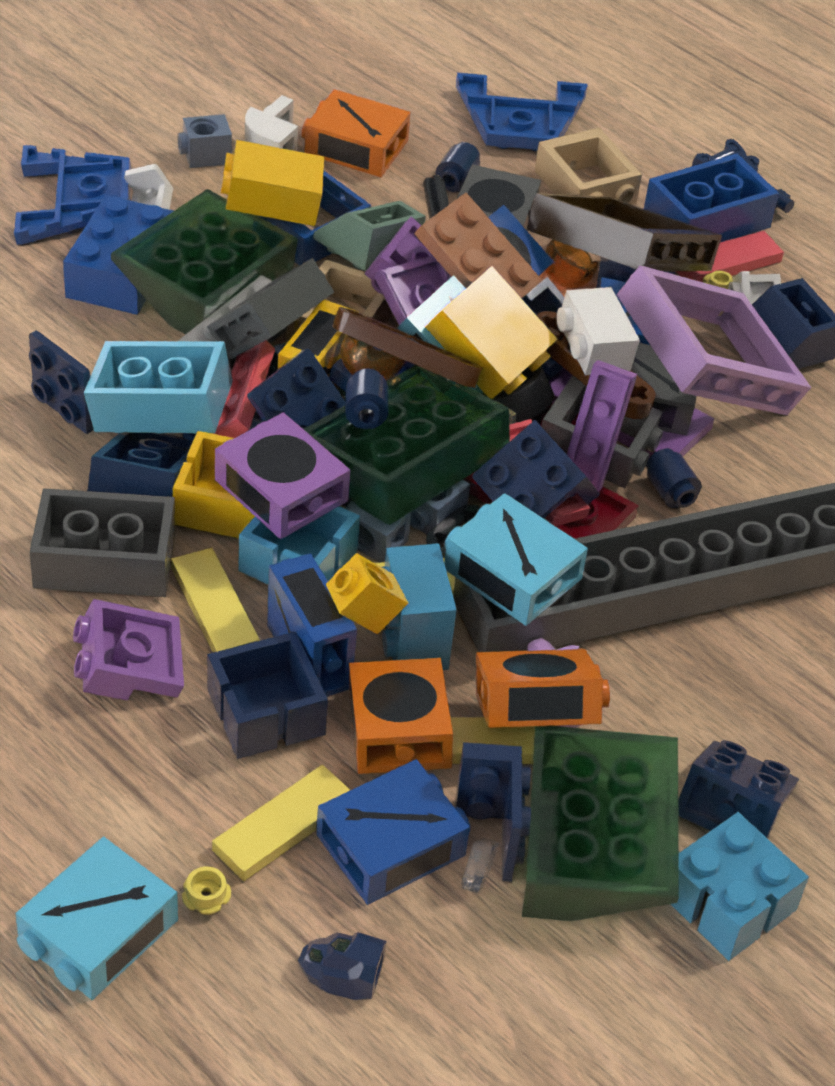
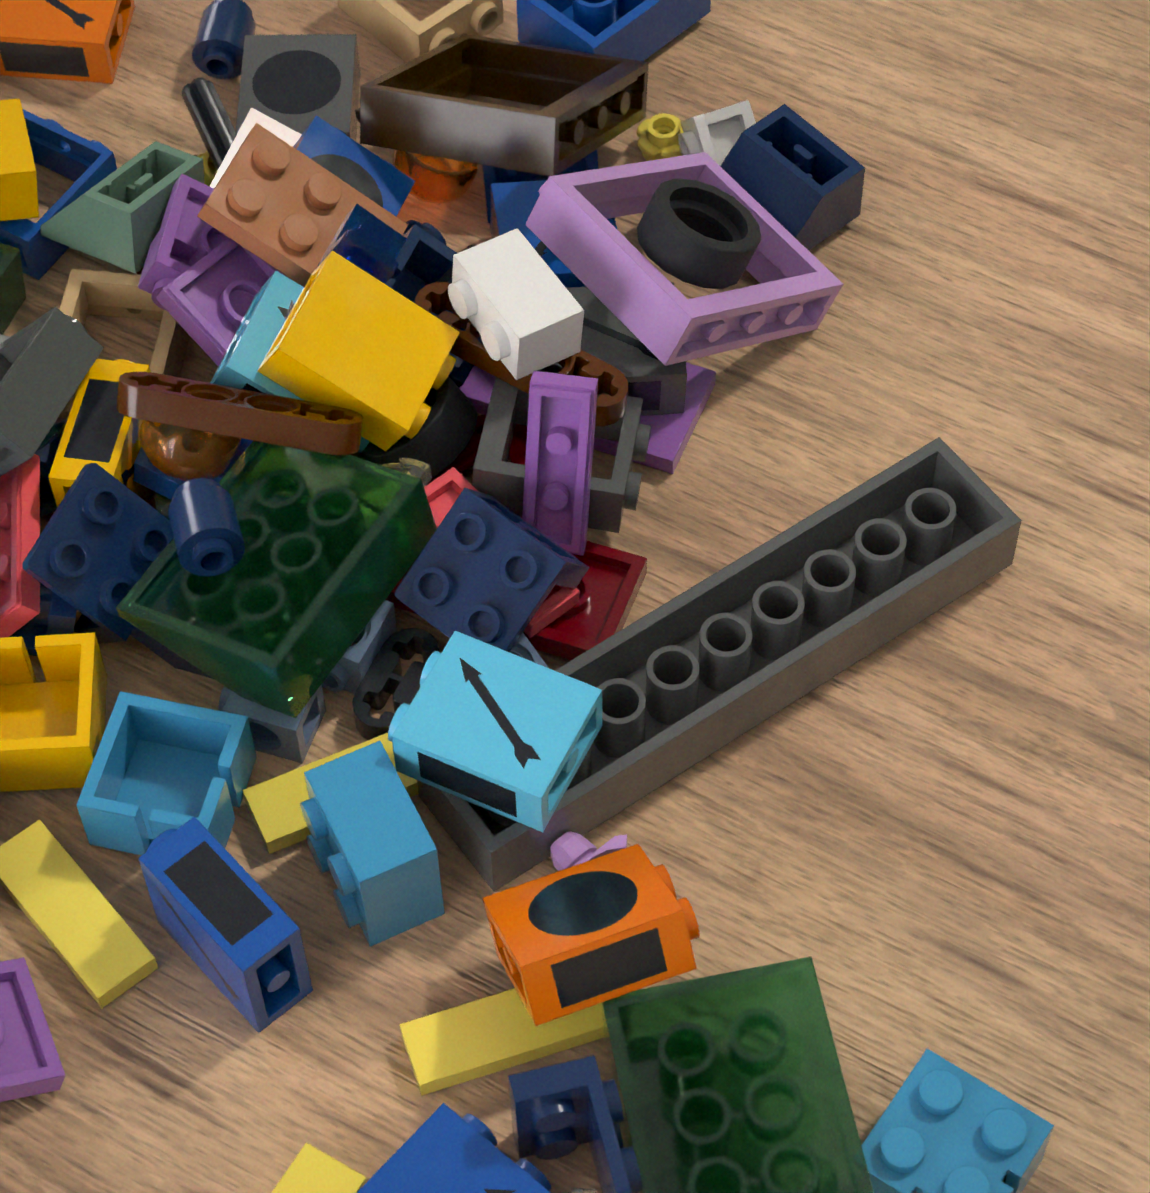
camera: 10 degrees left, 10 degrees up
(266, 694) = (192, 1058): dark blue piece -> none
(282, 475) = (112, 689): medium lavender brick -> none
(366, 593) = (297, 865): yellow brick -> none
(400, 715) = (398, 1029): orange brick -> none
(517, 275) = (367, 243): none -> clear blue bracket
(673, 478) = (684, 495): dark blue brick -> none
(725, 322) = (698, 233): none -> black tyre
(731, 782) = (911, 994): dark blue bracket -> none
(741, 255) = (684, 72): coral tile -> none

